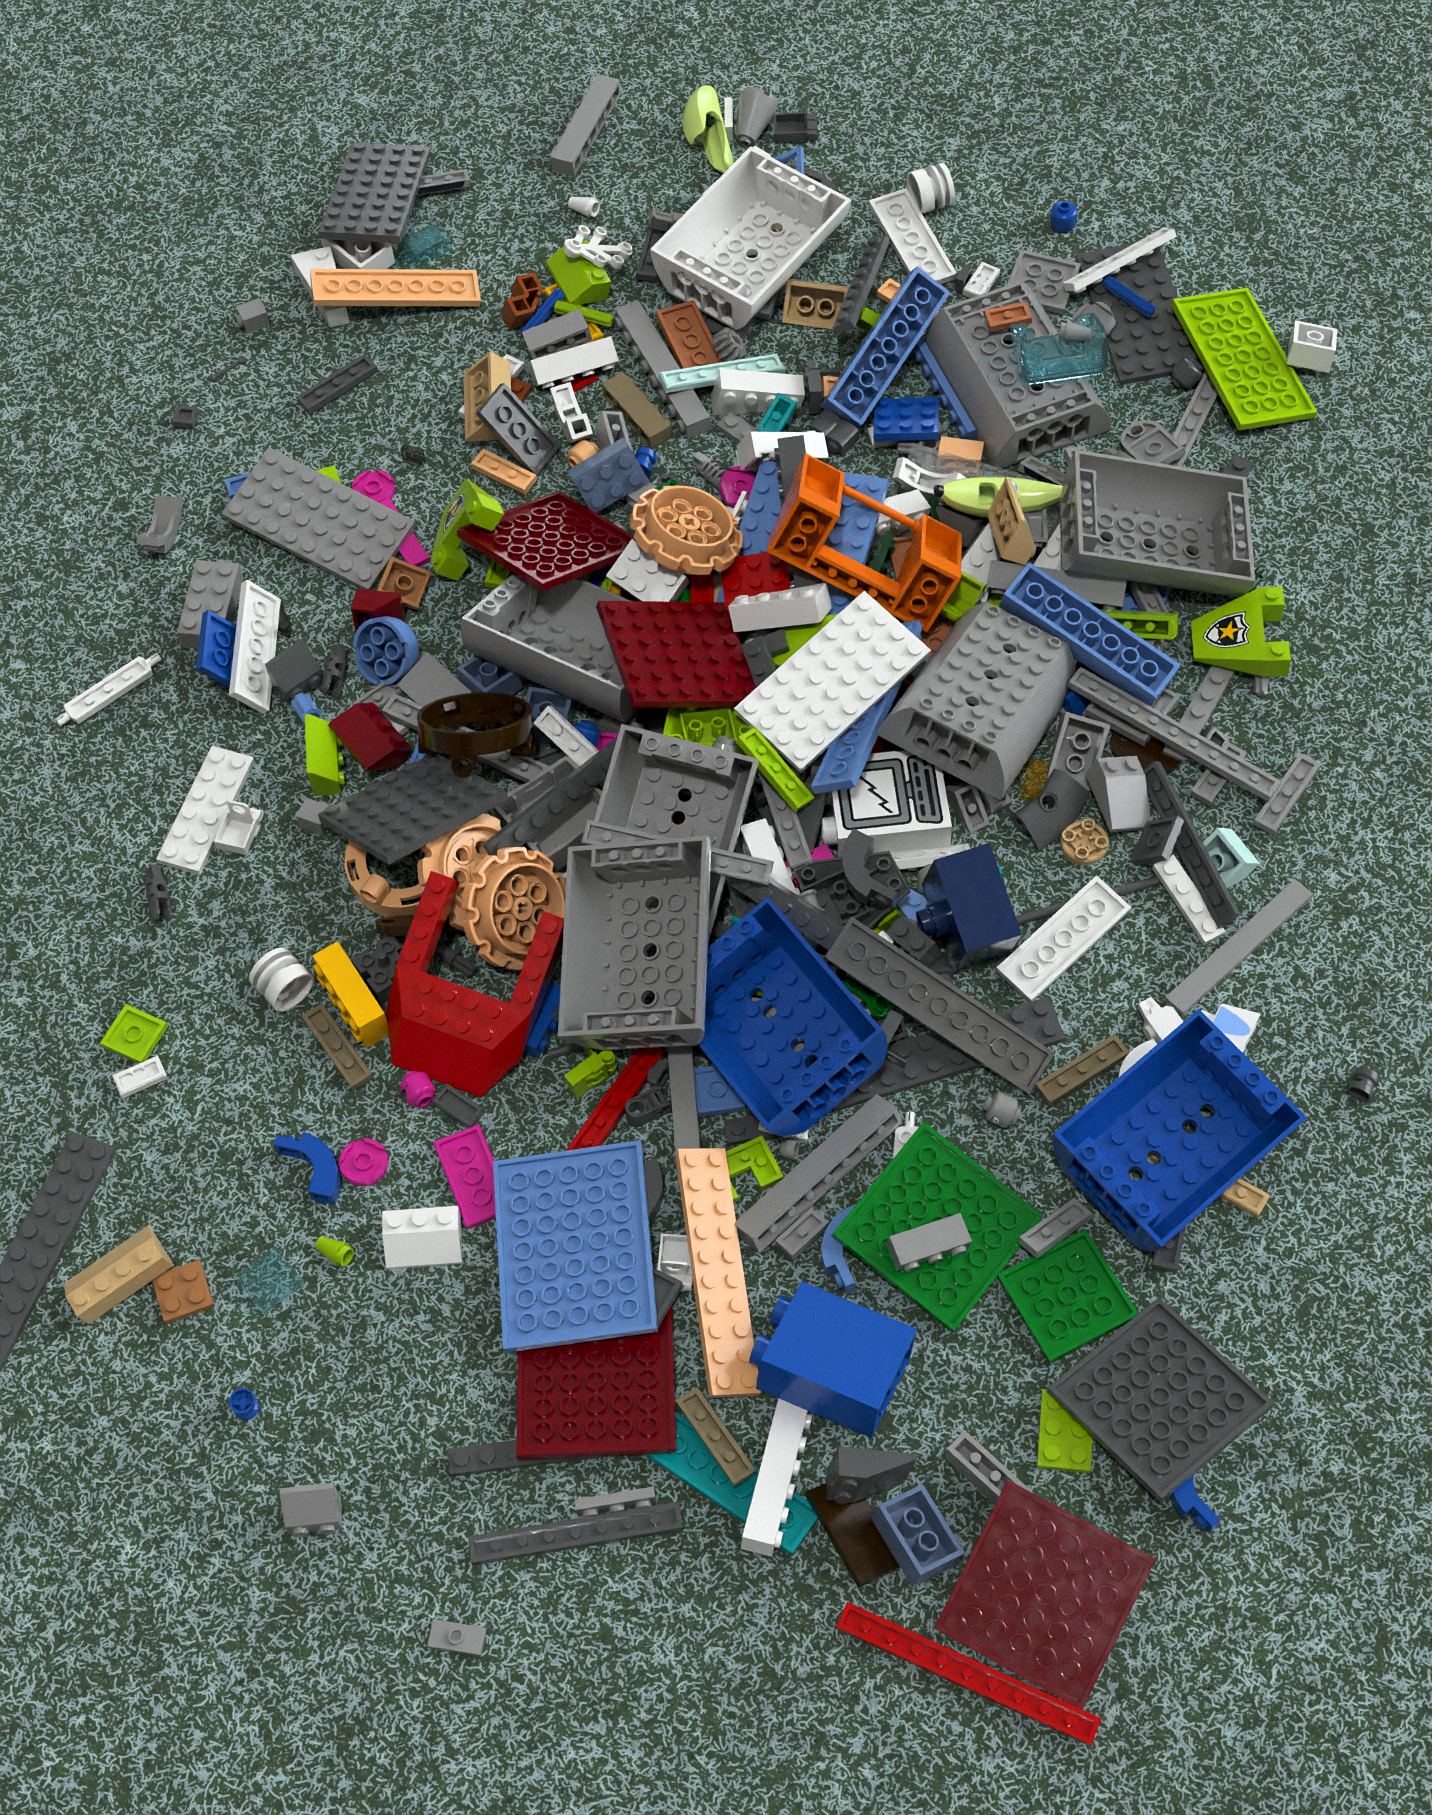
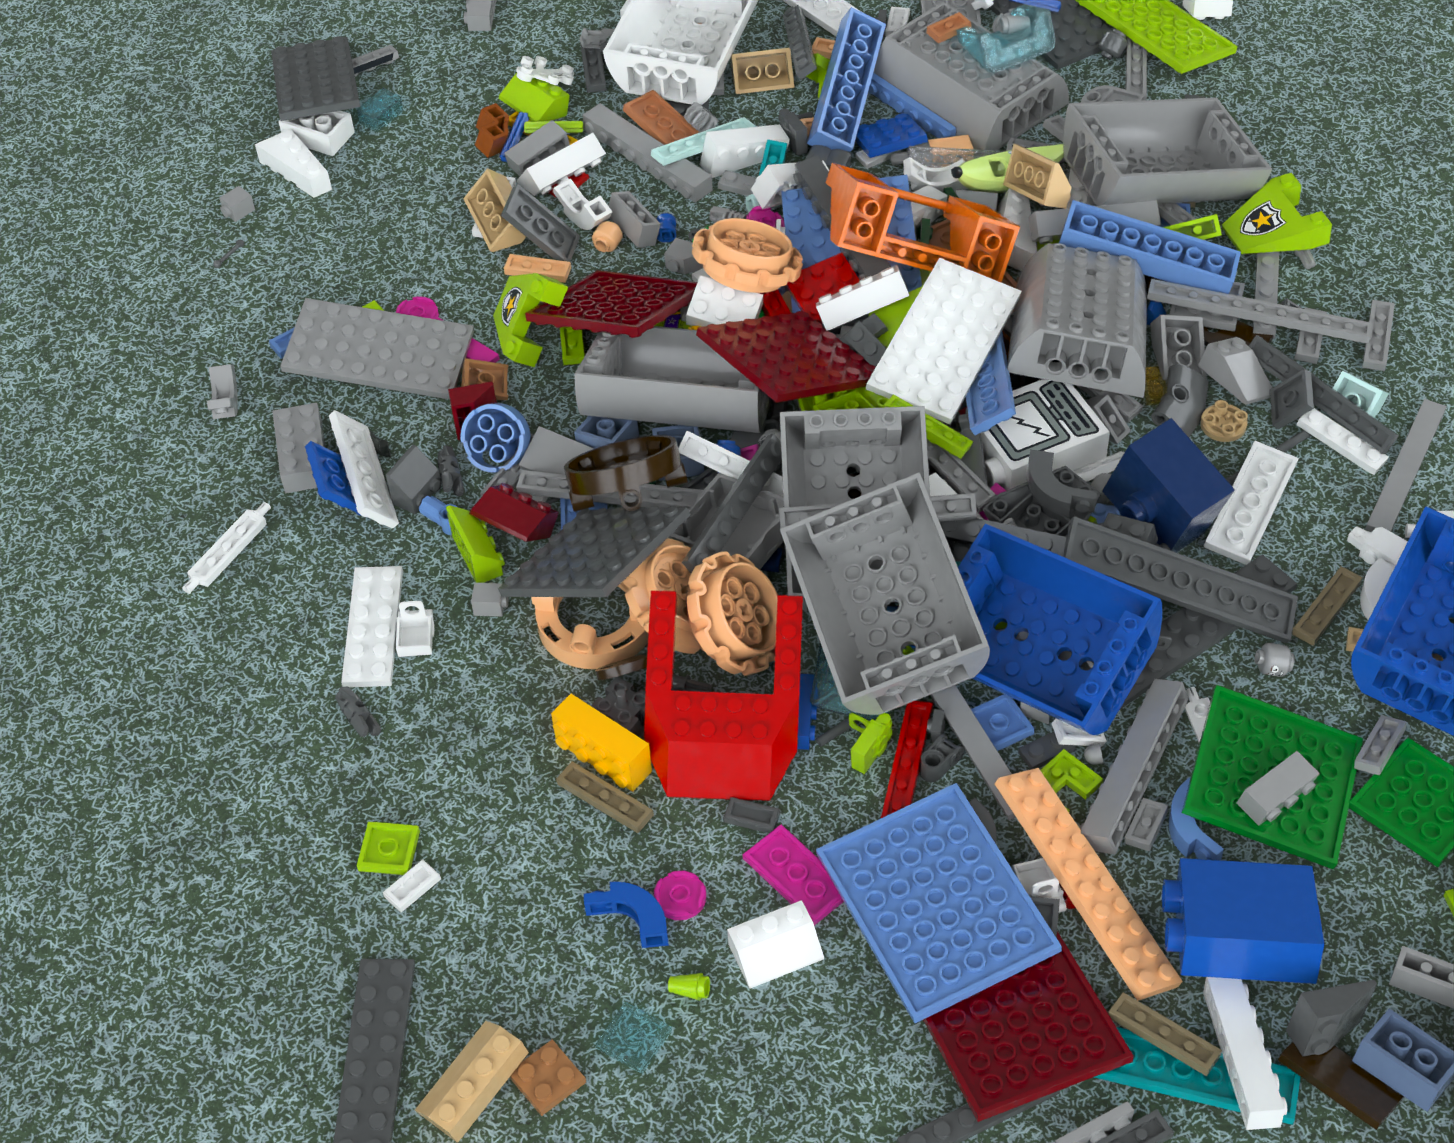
camera: 20 degrees left, 10 degrees down
(185, 417) = (205, 300): dark grey plate -> none
(281, 979) = (523, 749): white wheel -> none
(337, 384) = (343, 238): dark grey plate -> none
(394, 287) = (367, 146): light nougat plate -> none
(412, 455) = (444, 276): clear smoke tile -> none
(417, 1089) = (704, 810): dark pink head -> none
(584, 205) = (512, 48): white cone -> none
(608, 475) = (643, 240): sand blue brick -> none
(637, 410) = (649, 192): dark tan brick -> none
(964, 596) = (1020, 254): lime piece -> none

